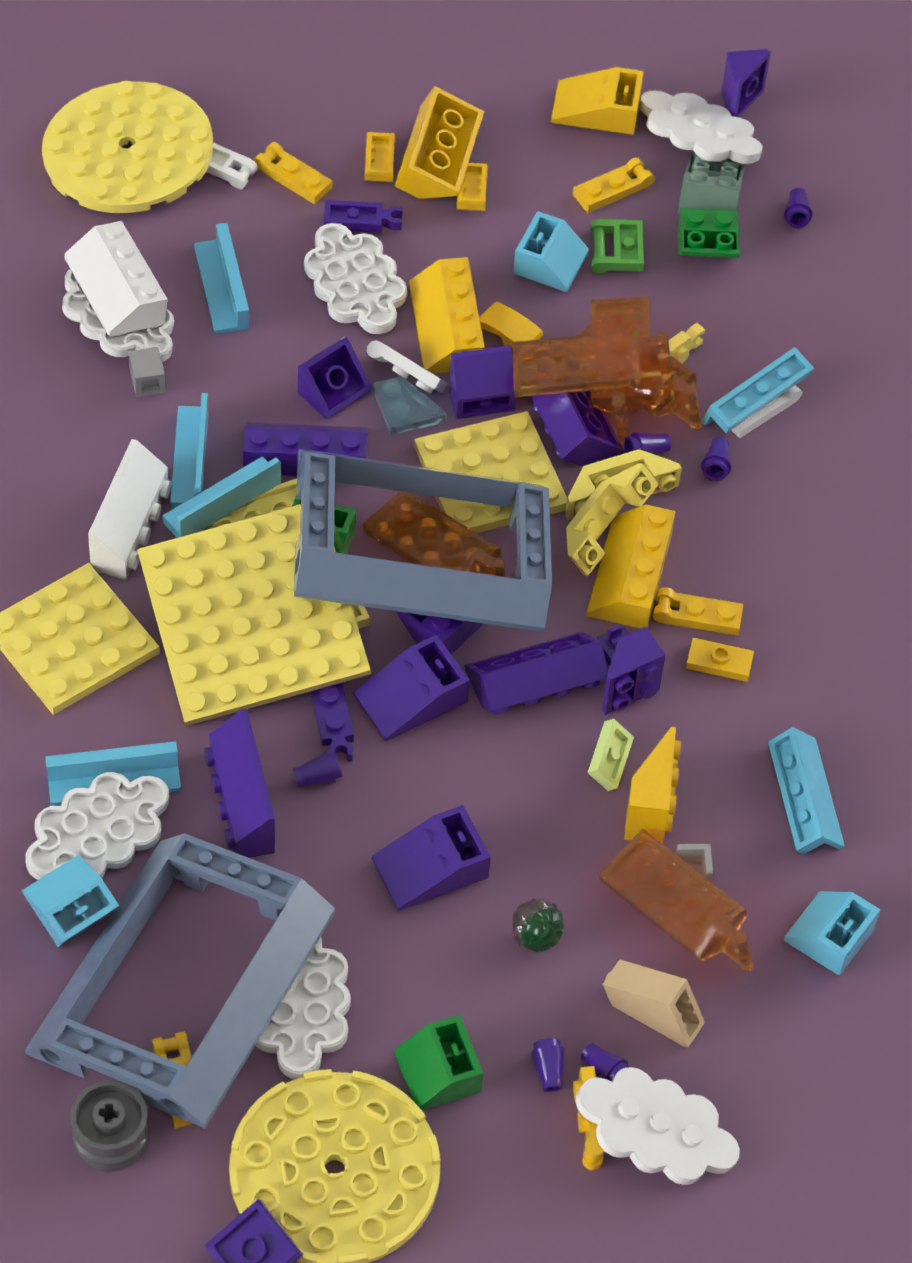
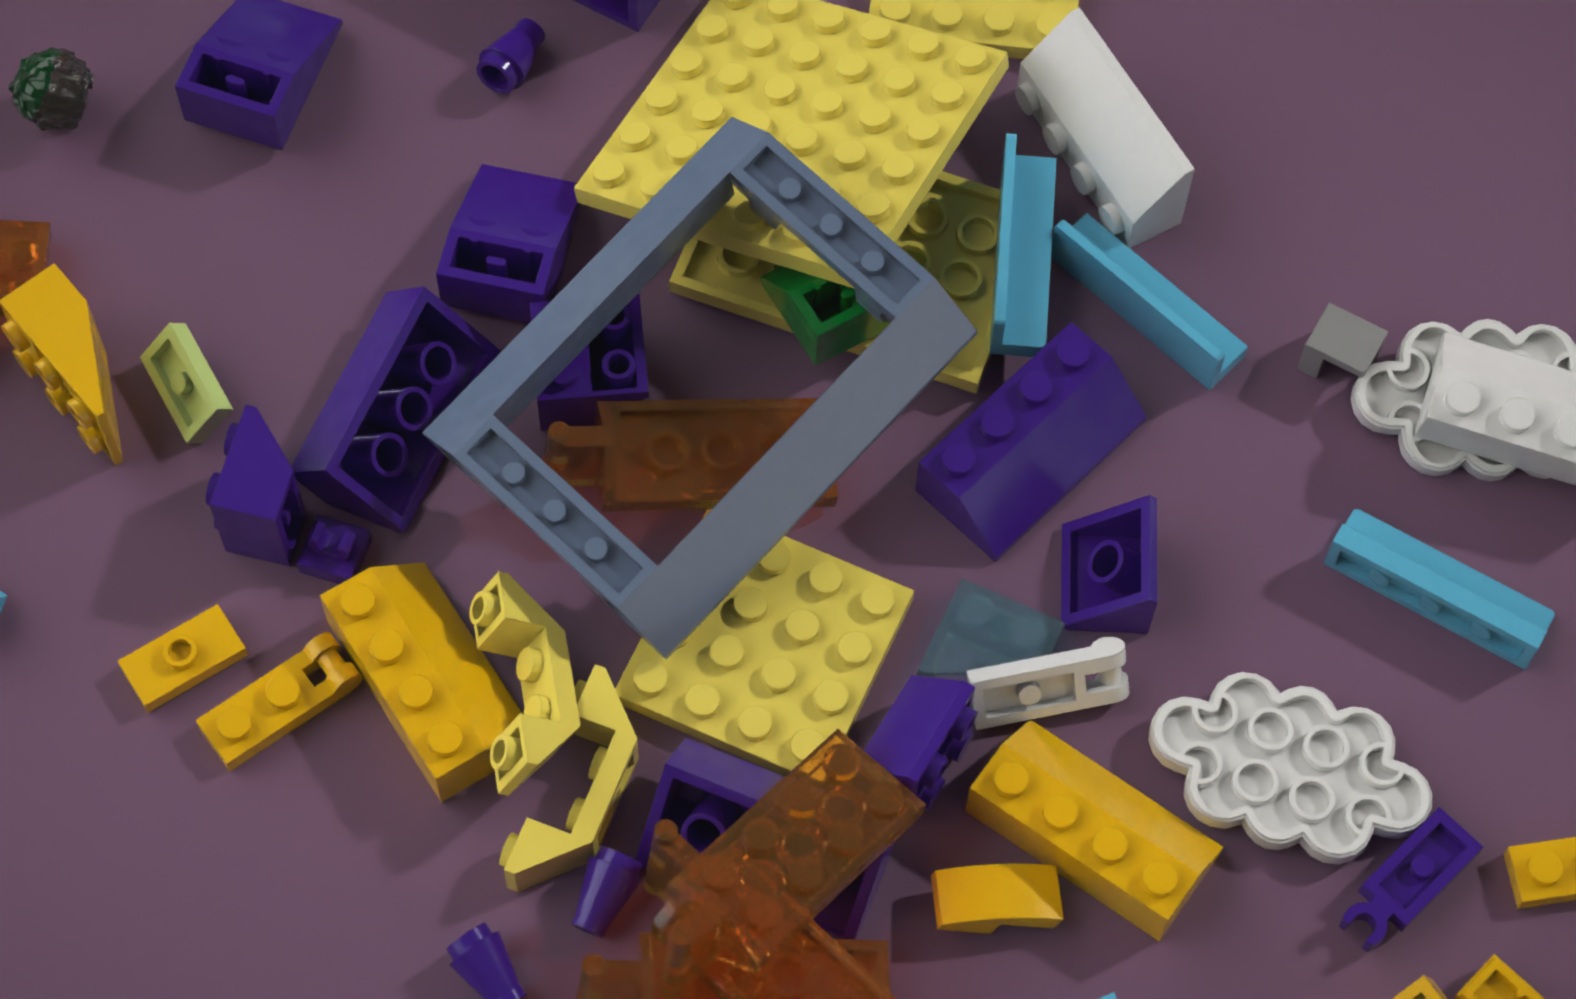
camera: 135 degrees right, 10 degrees up
(333, 719) = (556, 130): dark purple plate -> none

